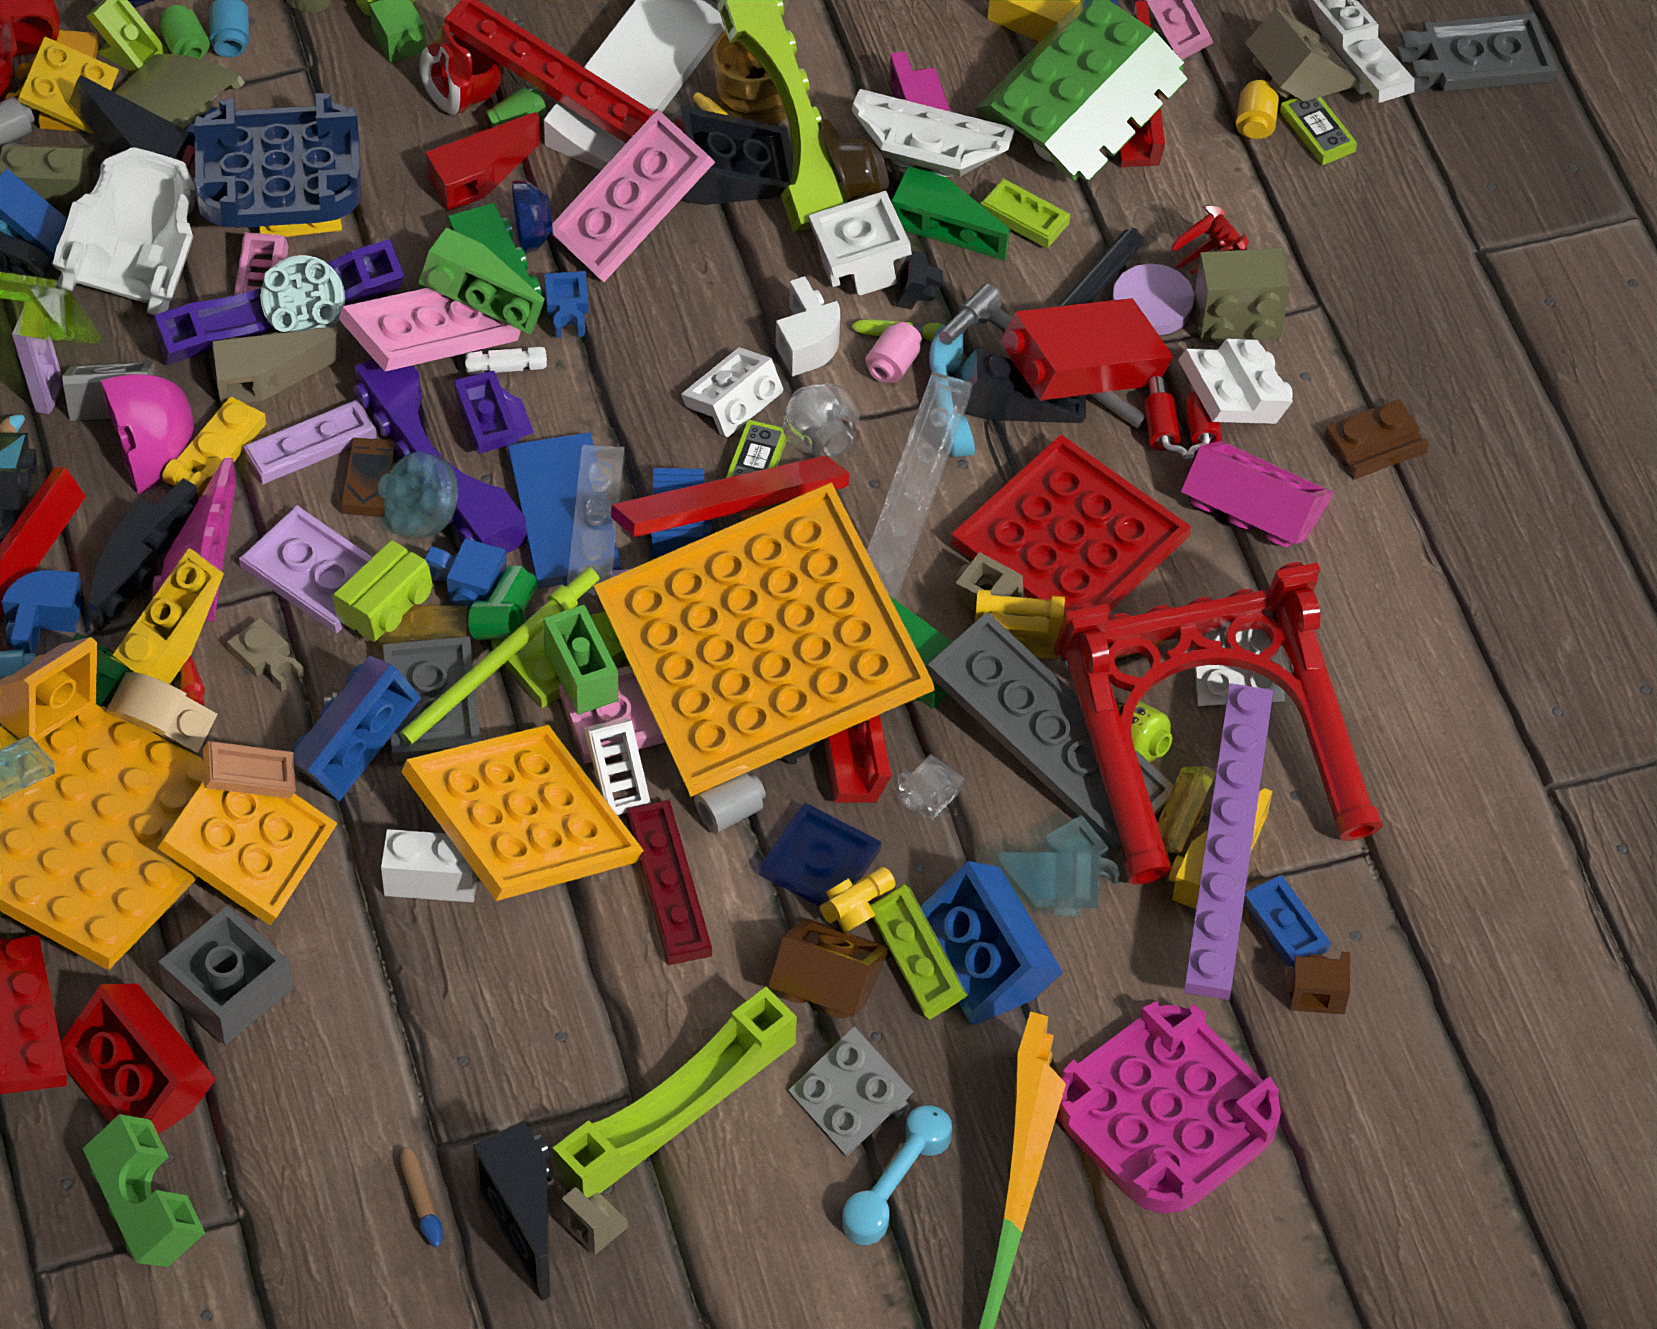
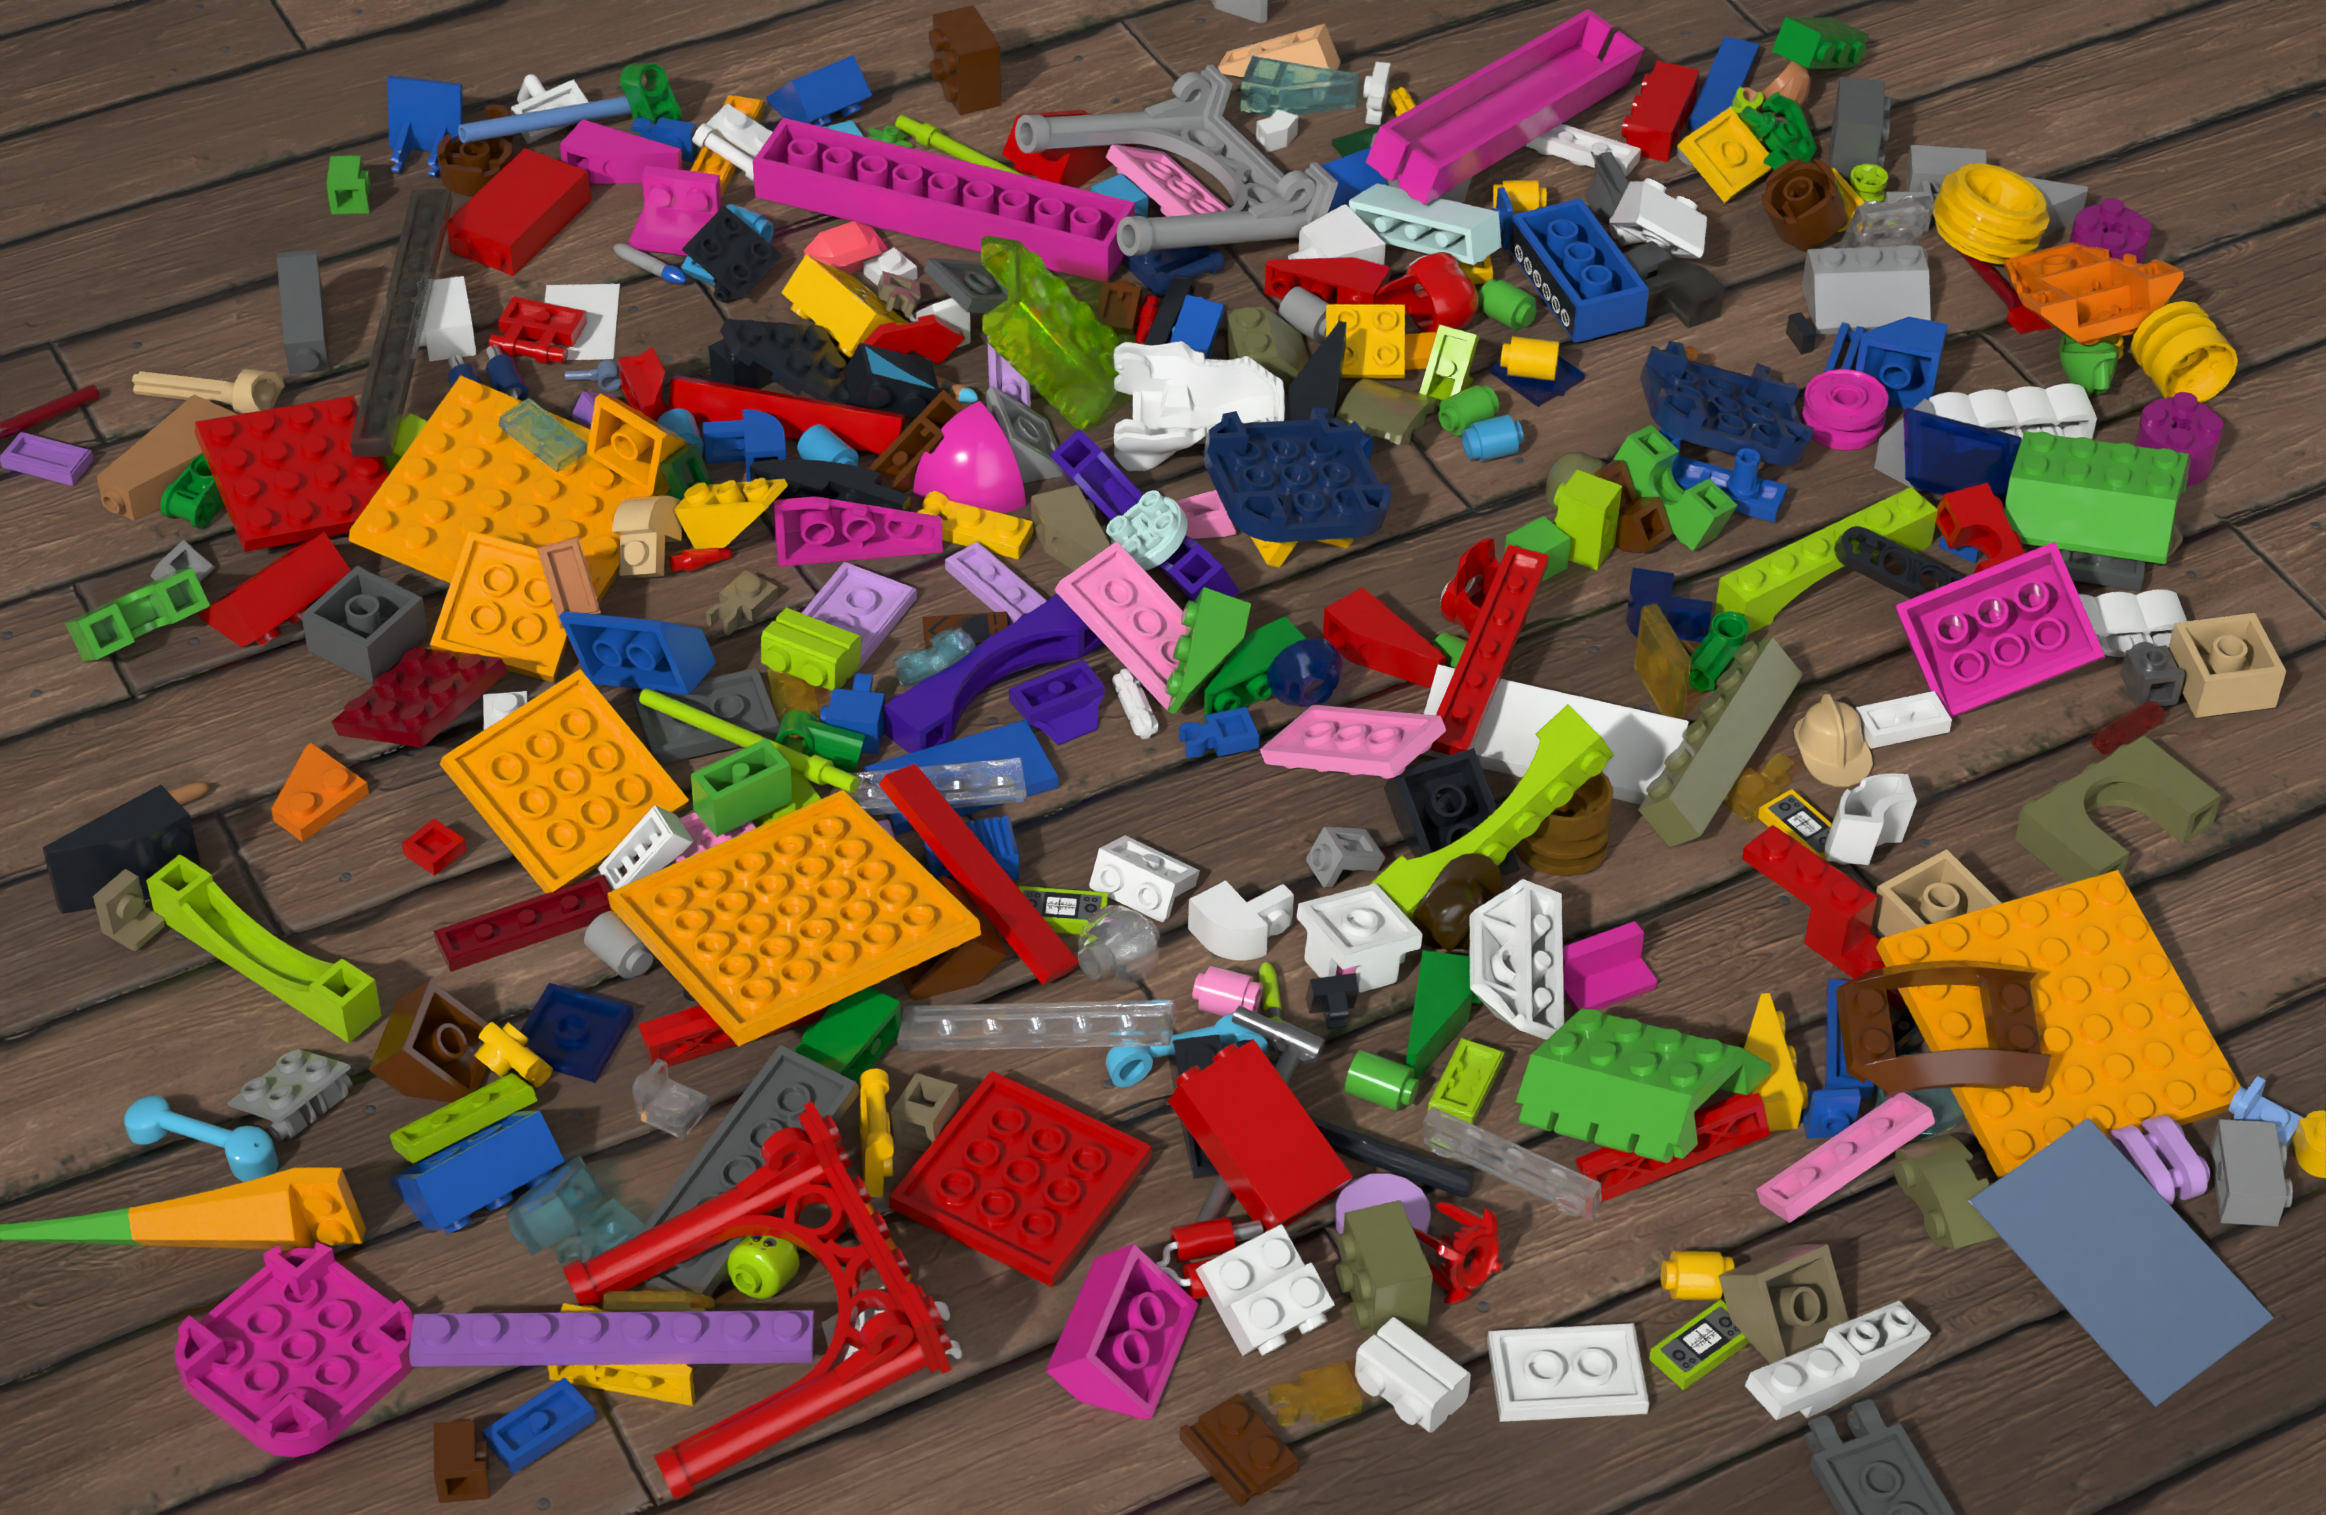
camera: 80 degrees right, 10 degrees down
(53, 1161) = (183, 557): none -> light grey slope
(78, 545) = (824, 445): none -> dark azure brick
(96, 463) = (924, 434): none -> reddish brown slope
(352, 934) = (419, 696): none -> dark red plate
(442, 1050) = (316, 793): none -> orange wing
(555, 946) = (434, 847): none -> red plate
(744, 244) = (1343, 849): none -> light grey bracket
(1016, 267) = (1381, 1081): none -> bright green brick
(1091, 228) = (1565, 1188): none -> clear plate
(1330, 216) = (1567, 1372): none -> white tile
(1330, 308) = (1411, 1375): none -> white brick
(1331, 374) = (1322, 1392): none -> clear yellow plate

